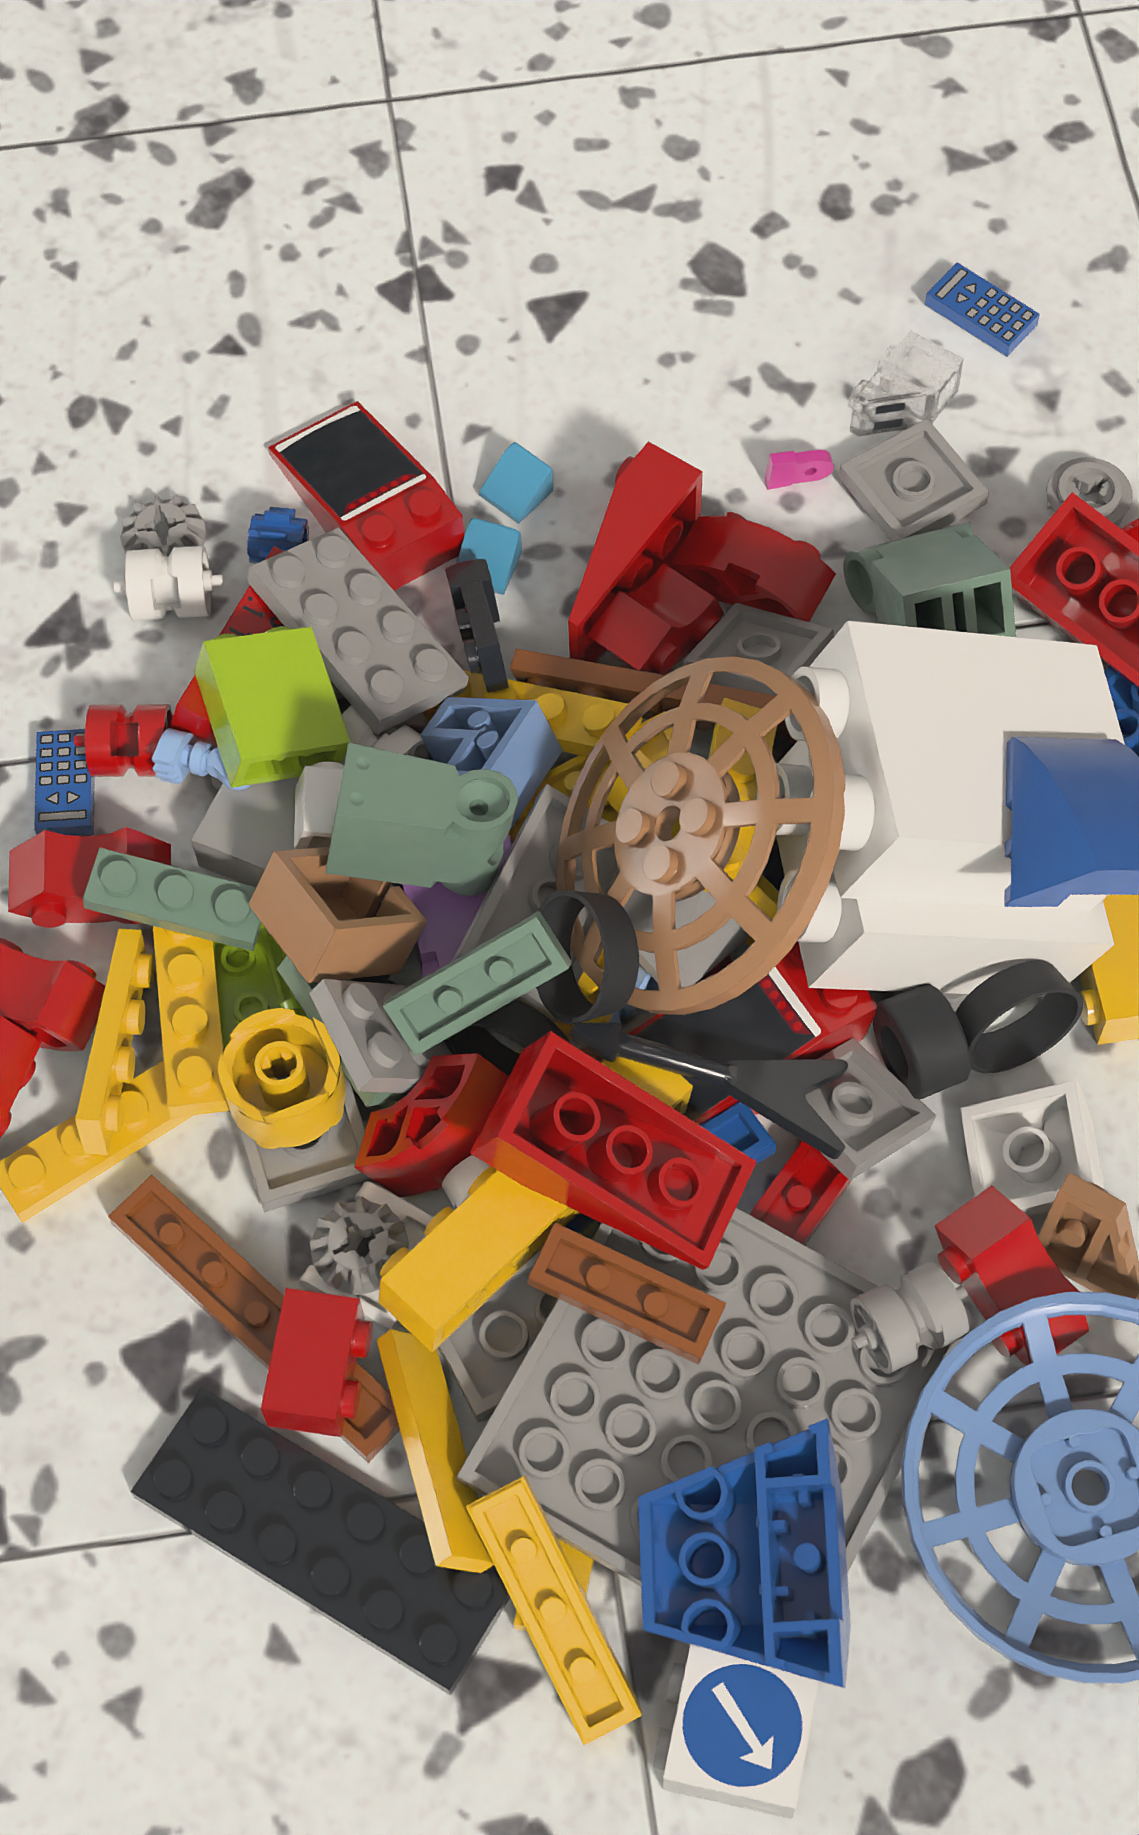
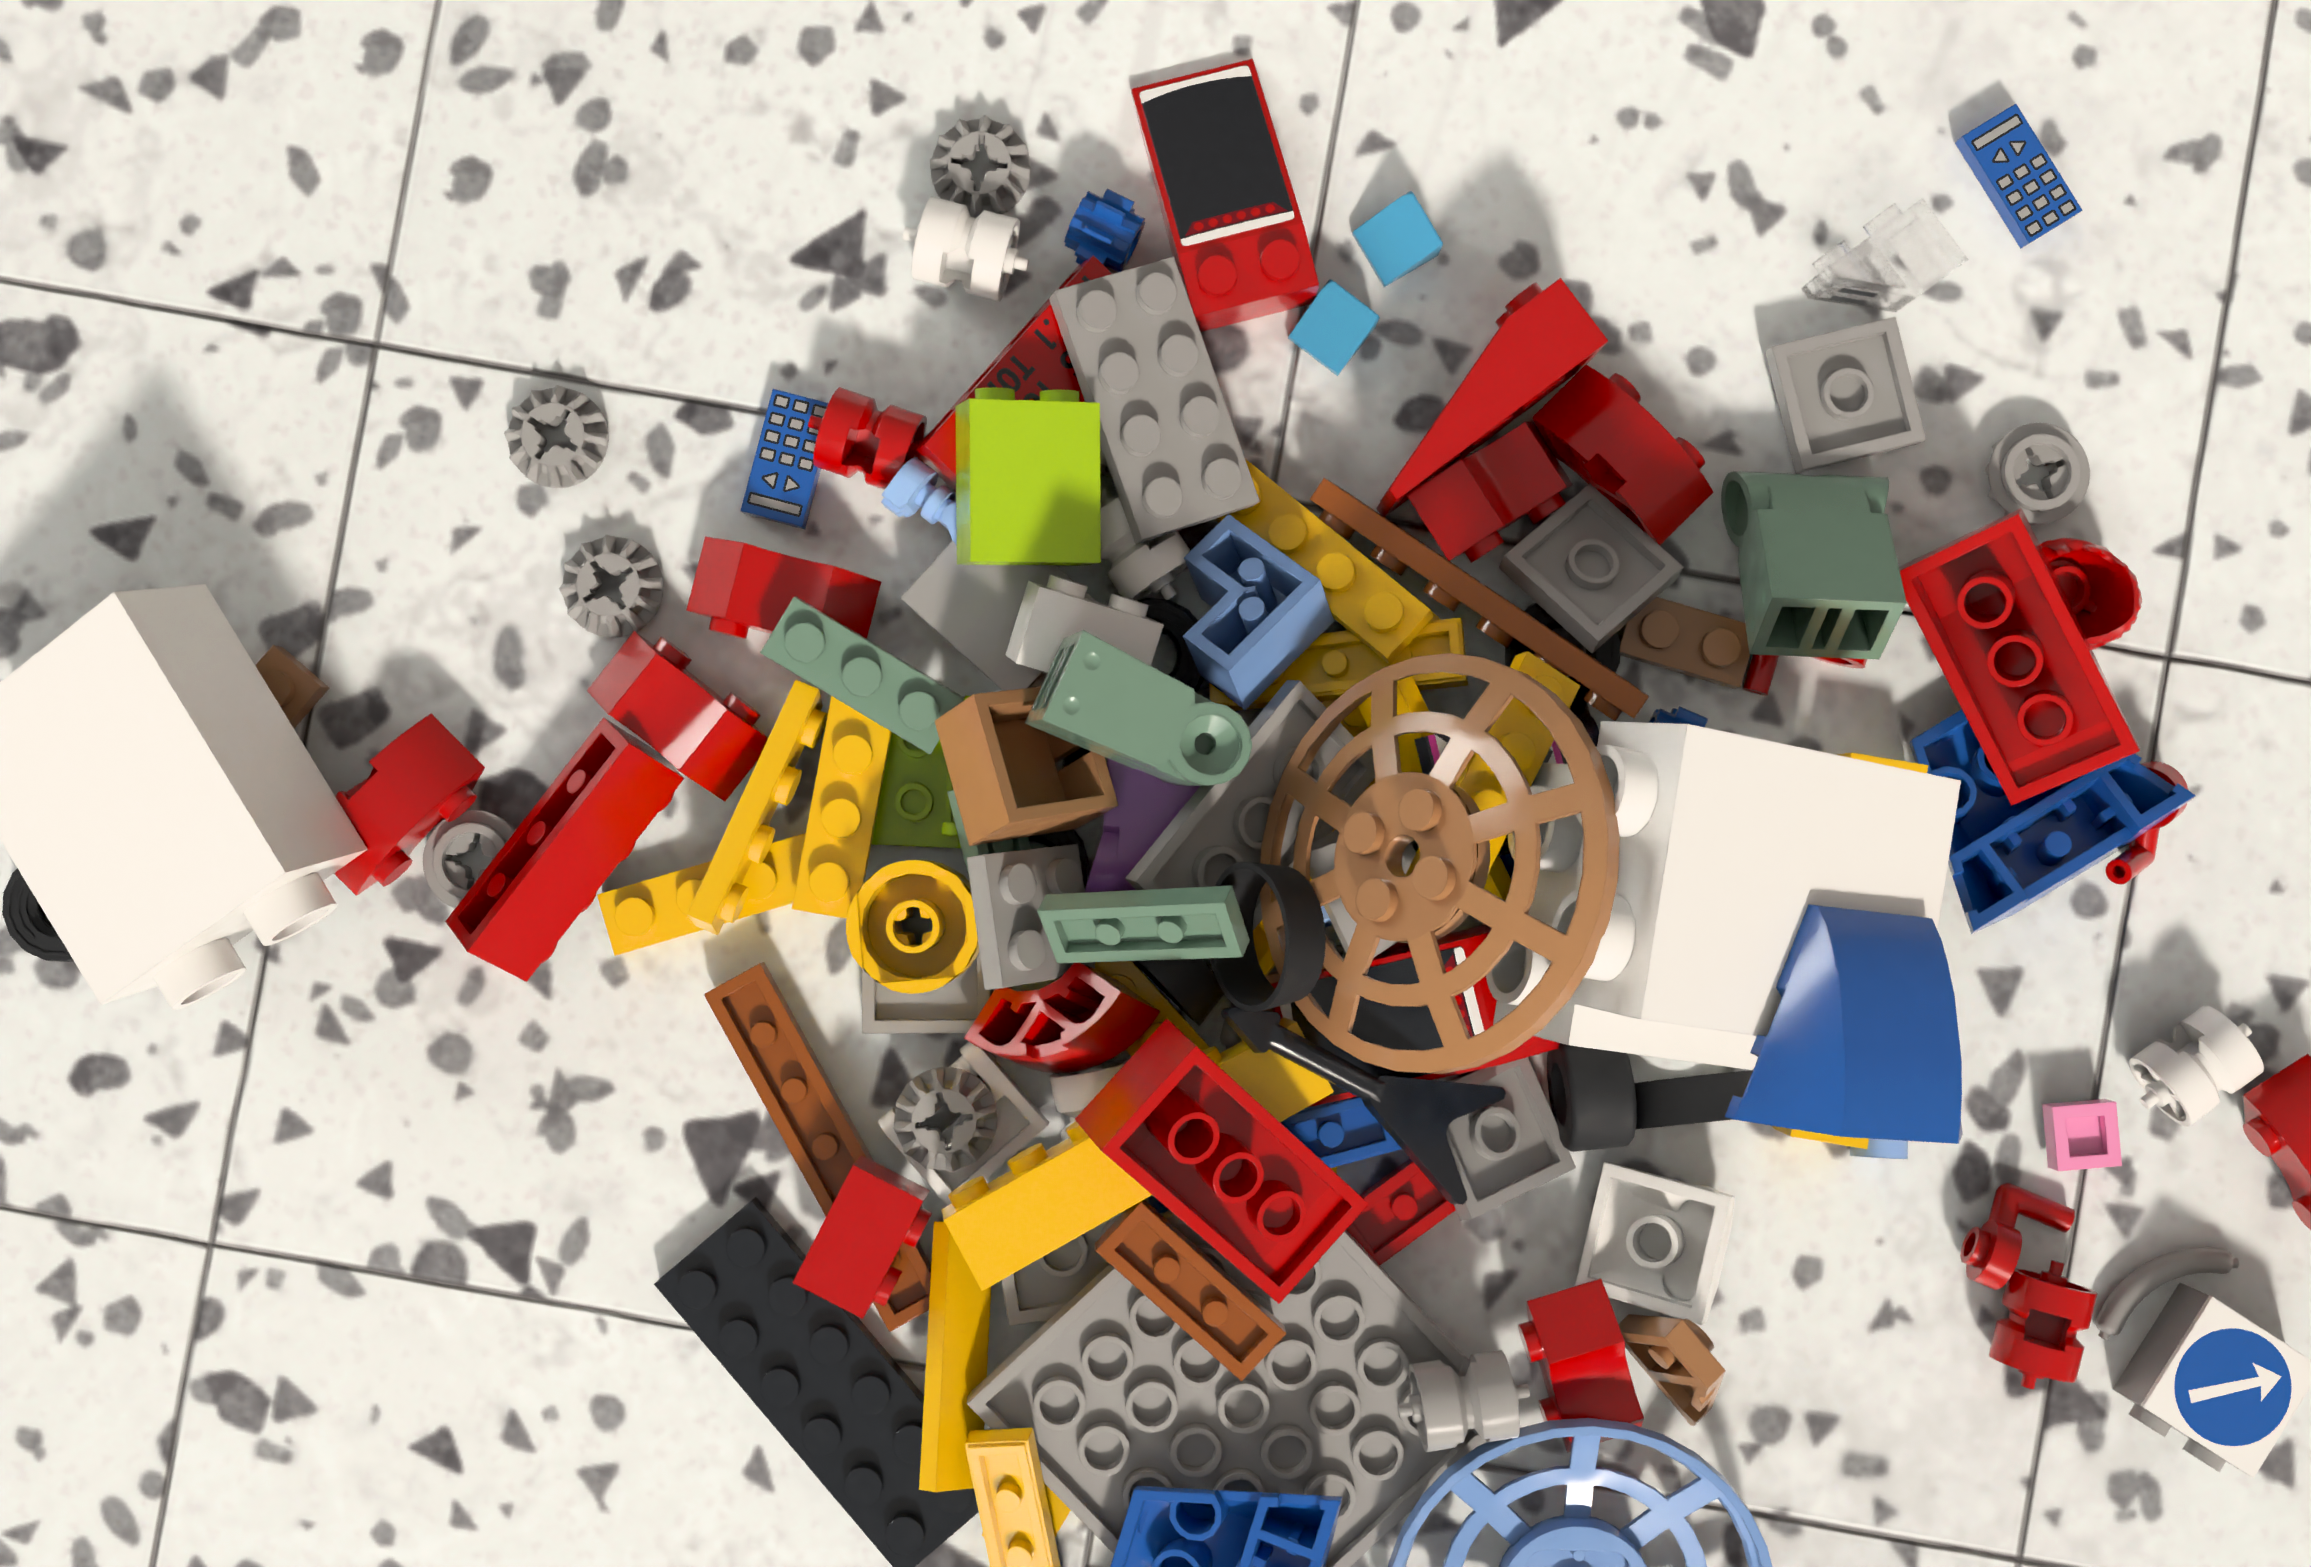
camera: 15 degrees right, 25 degrees up
(476, 614) = (1297, 395): black plate -> none
(798, 467) = (1723, 327): dark pink piece -> none

